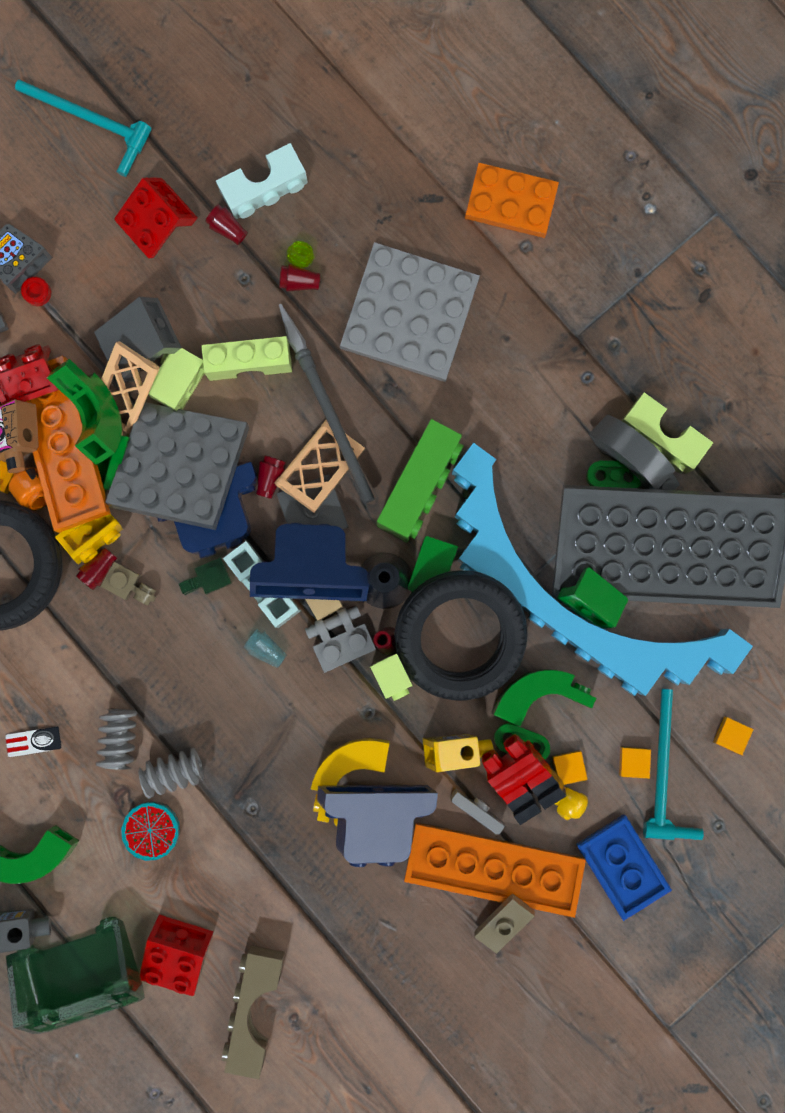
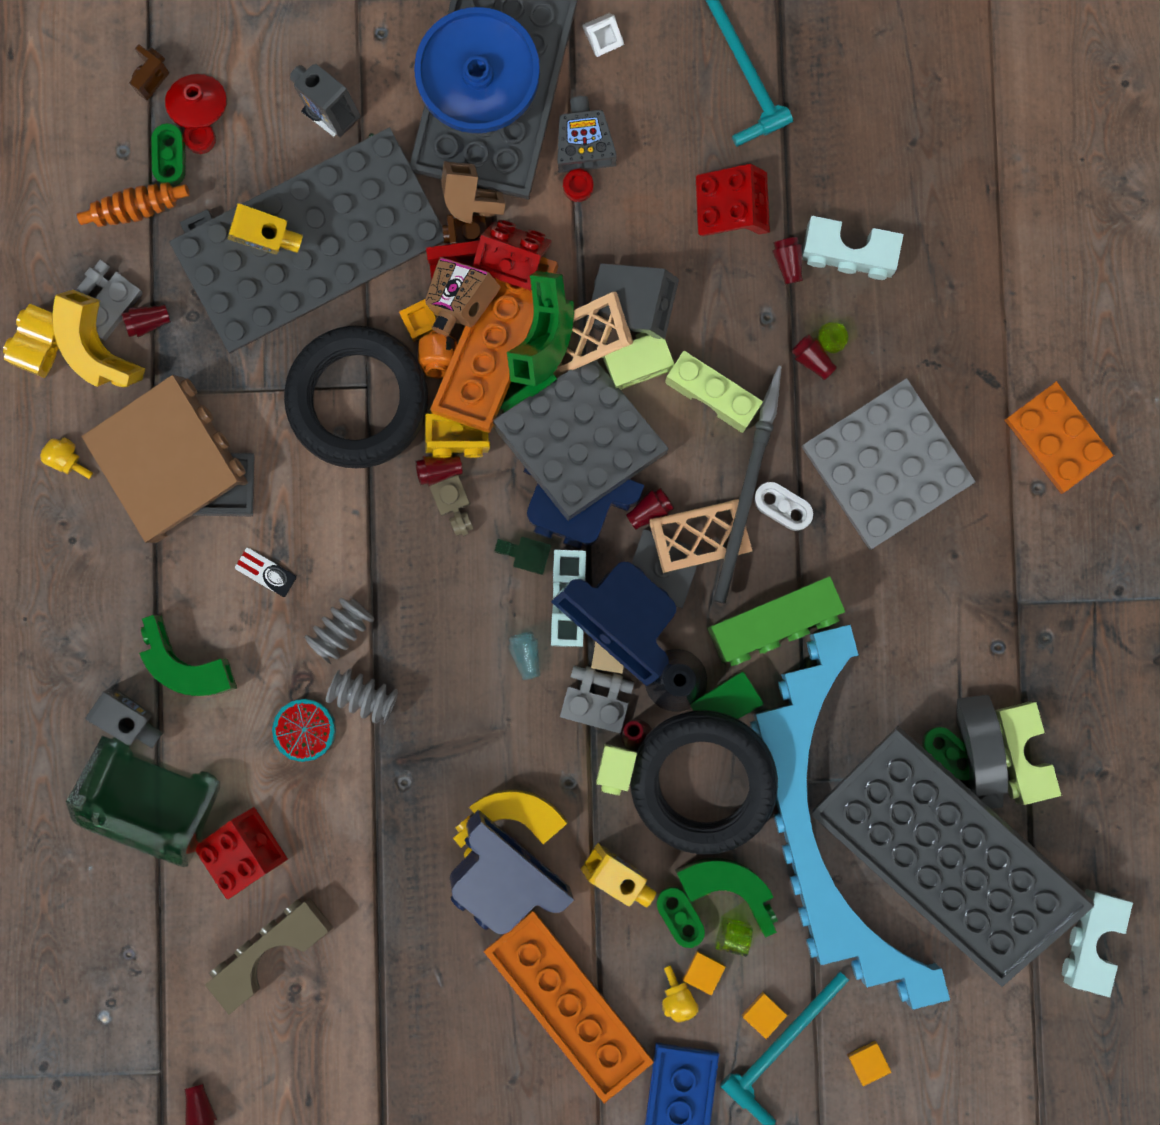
camera: 45 degrees right, 0 degrees up
(361, 396) = (784, 503): none -> white plate
(478, 810) = (595, 942): light grey plate -> none
(504, 923) = (540, 1058): dark tan plate -> none
(523, 779) = (656, 948): red hips -> none
(570, 725) = (734, 936): none -> clear neon green leg
(595, 600) = (844, 846): green panel -> none

